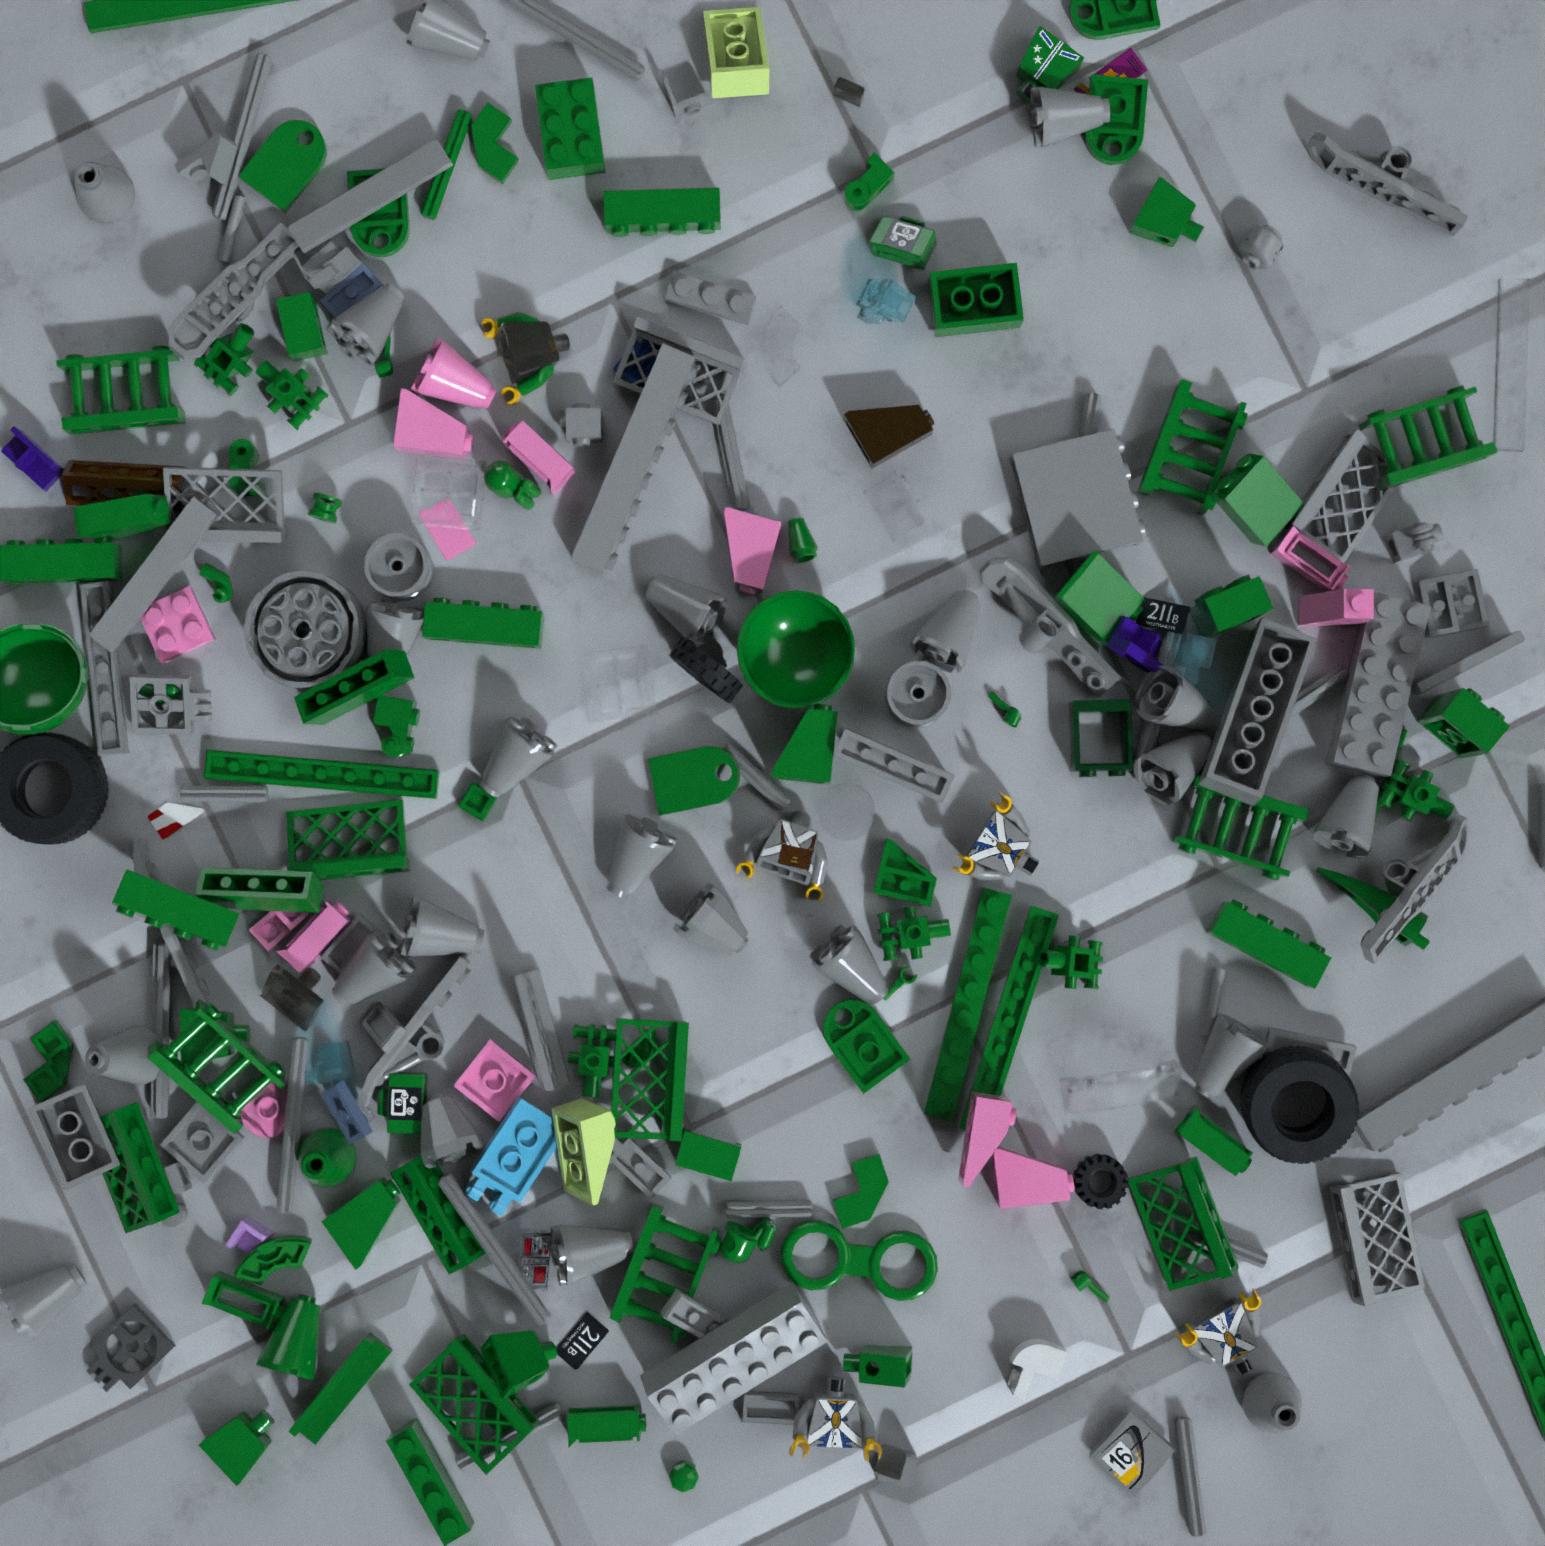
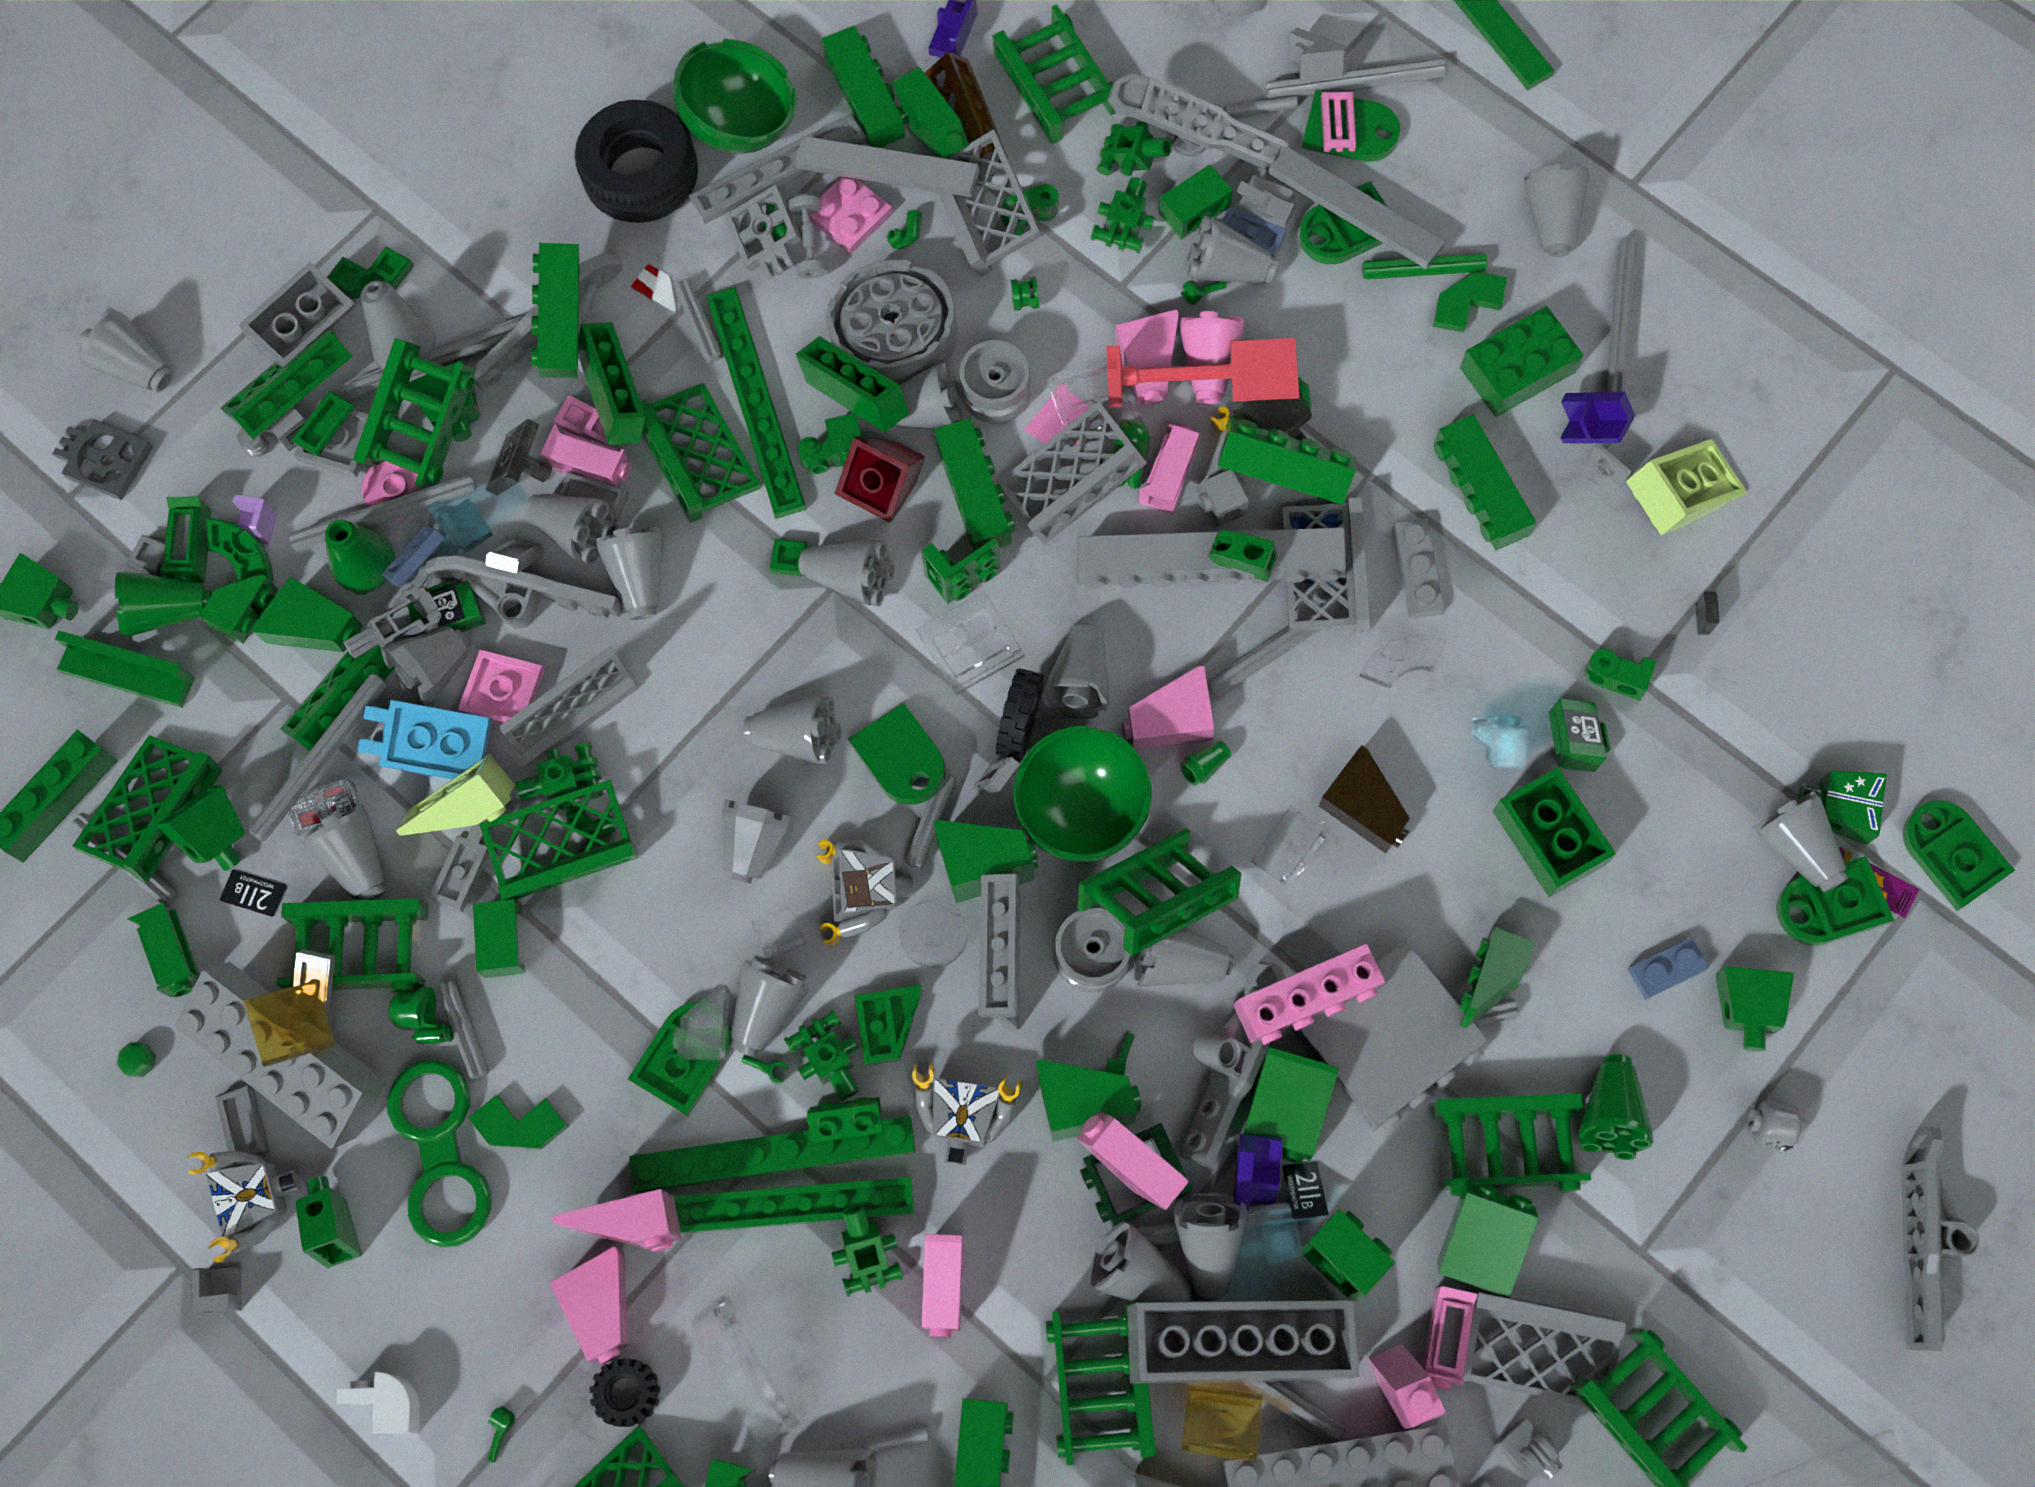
camera: 75 degrees right, 15 degrees down
(187, 1147) = (323, 423): none -> green tile
(189, 668) = (804, 206): none -> light grey wheel
(241, 1336) = (148, 555): none -> light grey tile
(302, 181) = (1338, 143): none -> bright pink tile
(325, 1275) = (238, 606): none -> green slope
(409, 1158) = (383, 630): none -> light grey piece
(441, 698) = (879, 476): none -> dark red slope
(492, 346) = (1257, 371): none -> coral piece
(533, 533) = (1090, 487): none -> light grey fence
(551, 681) = (958, 580): none -> green bracket
(579, 361) = (1287, 461): none -> green brick
(651, 95) = (1596, 417): none -> dark purple panel
(651, 433) = (1244, 553): none -> green leg
(721, 1341) = (289, 1023): none -> clear yellow tile
(746, 710) = (996, 776): none -> light grey tile
(853, 1019) = (705, 1027): none -> clear slope
(924, 627) = (1163, 916): none -> green fence
(967, 937) = (845, 1119): none -> green bracket
(1028, 546) = (1308, 994): none -> bright pink brick
(1032, 751) = (1078, 1093): none -> green slope
(1061, 391) = (1498, 974): none -> green slope
(1101, 734) = (1131, 1160): none -> bright pink slope
(1111, 265) = (1668, 968): none -> sand blue plate
(1121, 913) = (943, 1284): none -> bright pink slope
(1202, 358) = (1616, 1111): none -> green cone
(1306, 751) = (1222, 1423): none -> clear yellow tile

